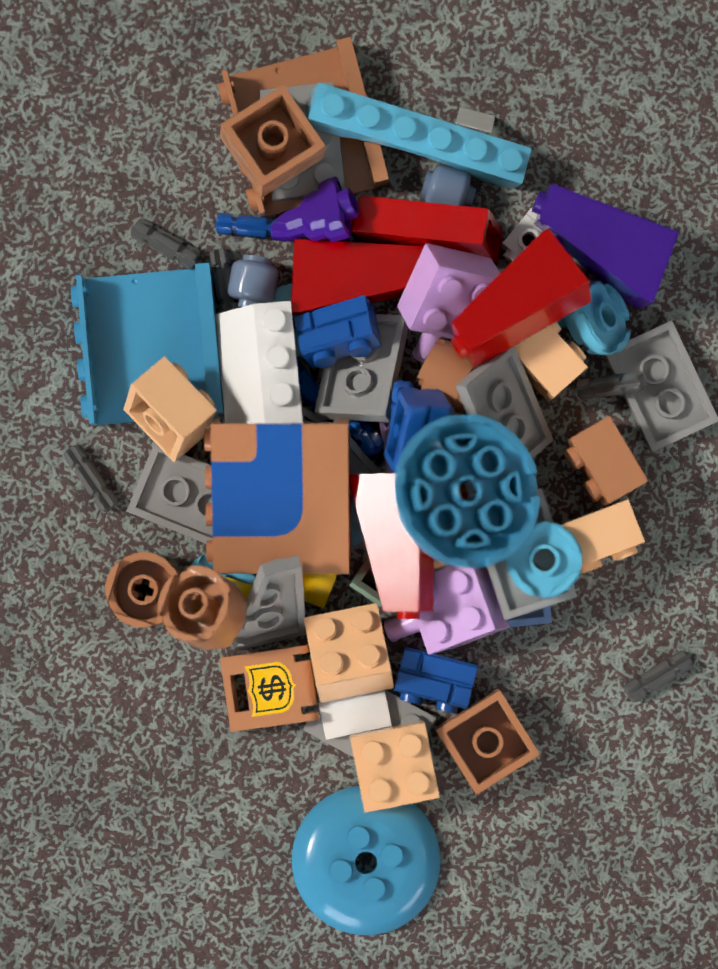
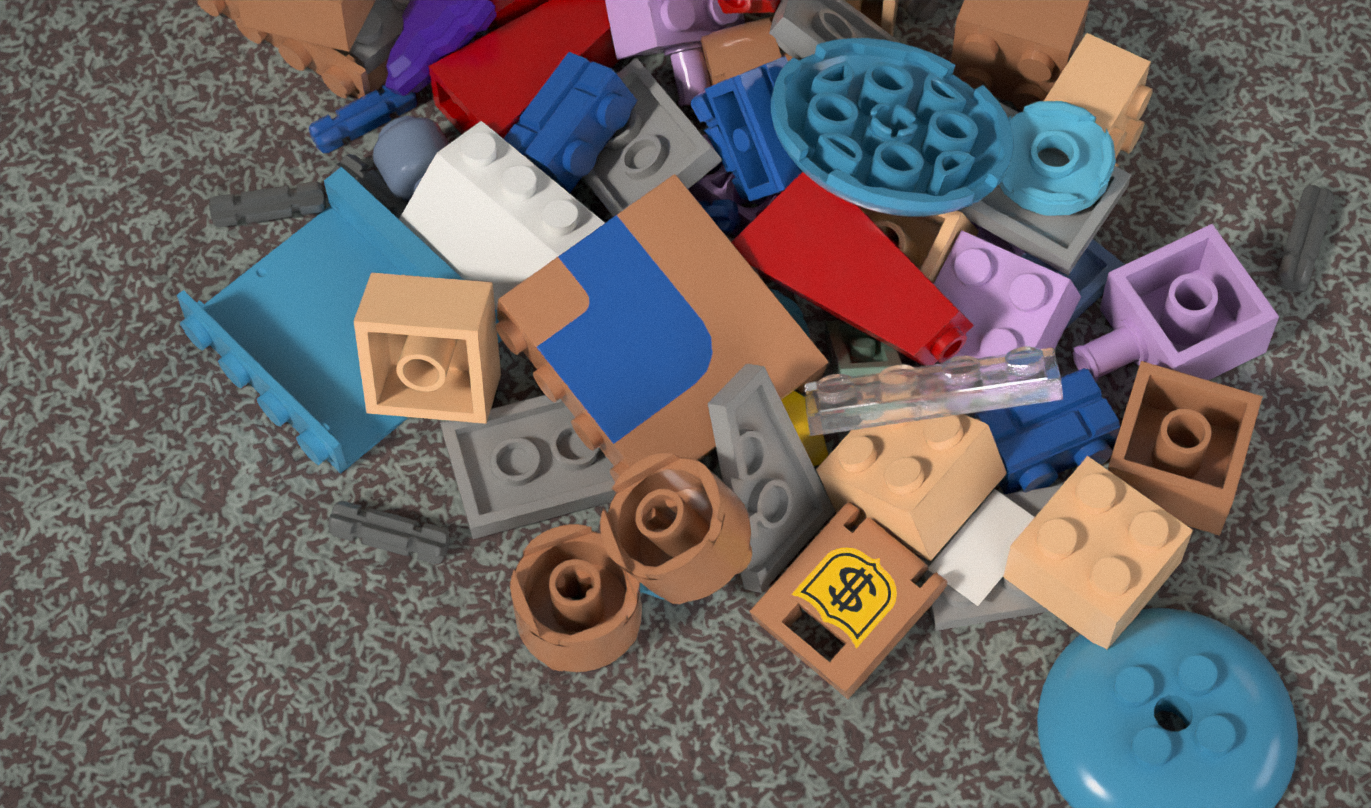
camera: 40 degrees left, 25 degrees down
(382, 631) = (933, 391): none -> clear plate
(548, 674) = (1182, 311): none -> lavender brick

